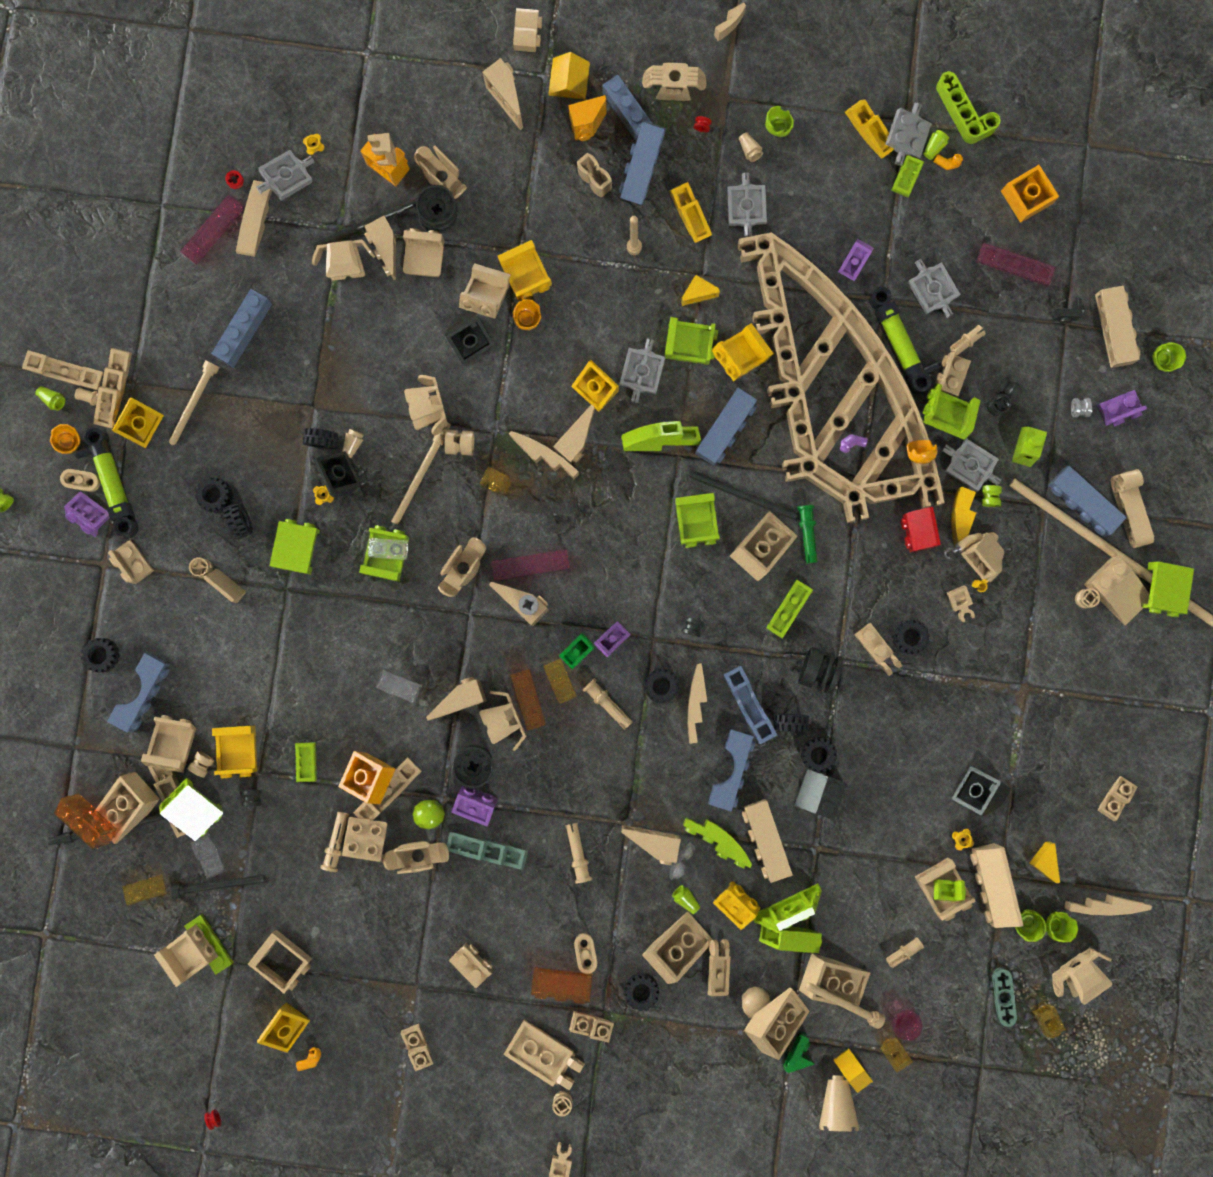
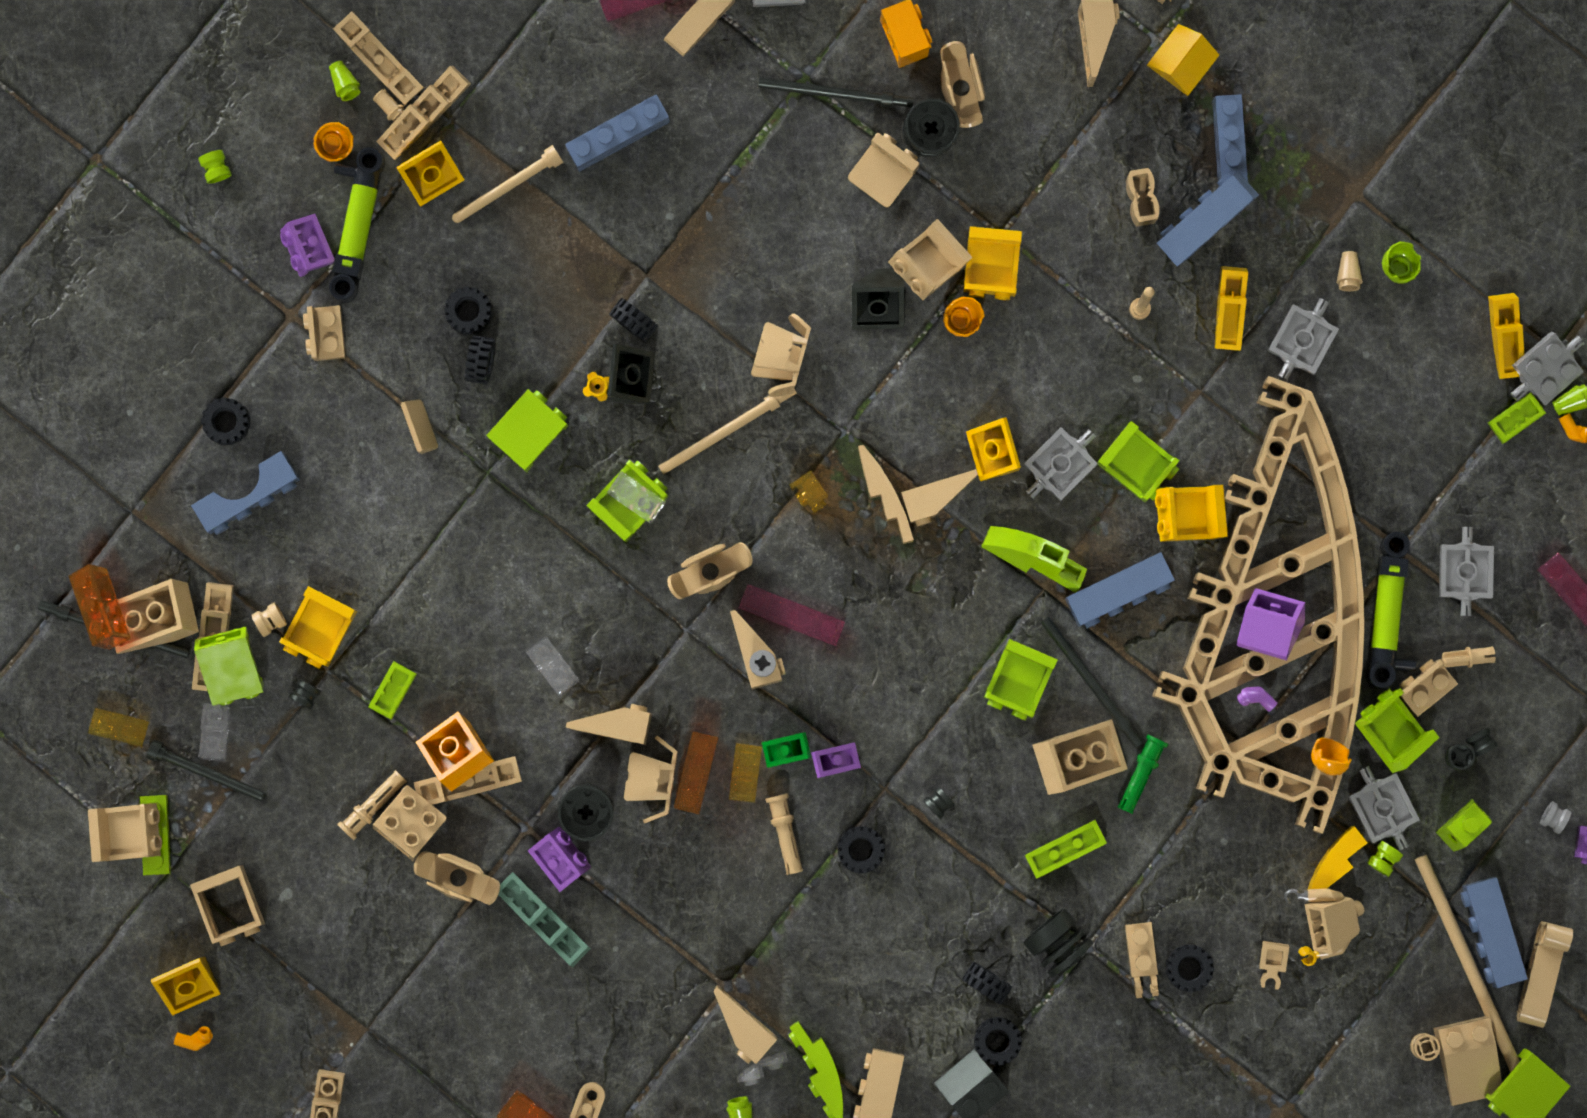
camera: 25 degrees right, 0 degrees up
(81, 480) = (322, 201): tan plate -> none
(169, 744) = (247, 574): tan panel -> none
(197, 566) = (403, 384): tan wheel -> none
(212, 1119) = (43, 1040): red bush -> none
(342, 259) = (785, 122): tan piece -> none
(352, 442) = (668, 345): tan cone -> none
(383, 145) = (911, 27): tan hinge -> none
(384, 239) = (846, 128): tan slope -> none
(428, 814) = (499, 836): lime hair -> none
(466, 444) = (802, 426): tan wheel -> none
(471, 964) = (445, 1042): tan bracket -> none
(580, 863) = (642, 999): tan pin -> none
(587, 117) = (1174, 123): light orange slope -> none
(664, 74) = (1290, 126): tan piece -> none
(696, 696) = (895, 886): tan slope -> none
(699, 291) = (1185, 409): yellow slope -> none
(702, 124) = (1308, 211): red bush -> none
(724, 794) = (859, 1020): sand blue arch -> none
(733, 18) = (1422, 105): tan slope -> none
(749, 705) = (950, 933): sand blue arch -> none
(834, 391) = (1271, 624): none -> medium lavender slope
(856, 259) = (1392, 482): medium lavender slope -> none
(920, 529) = (1275, 848): slope -> none

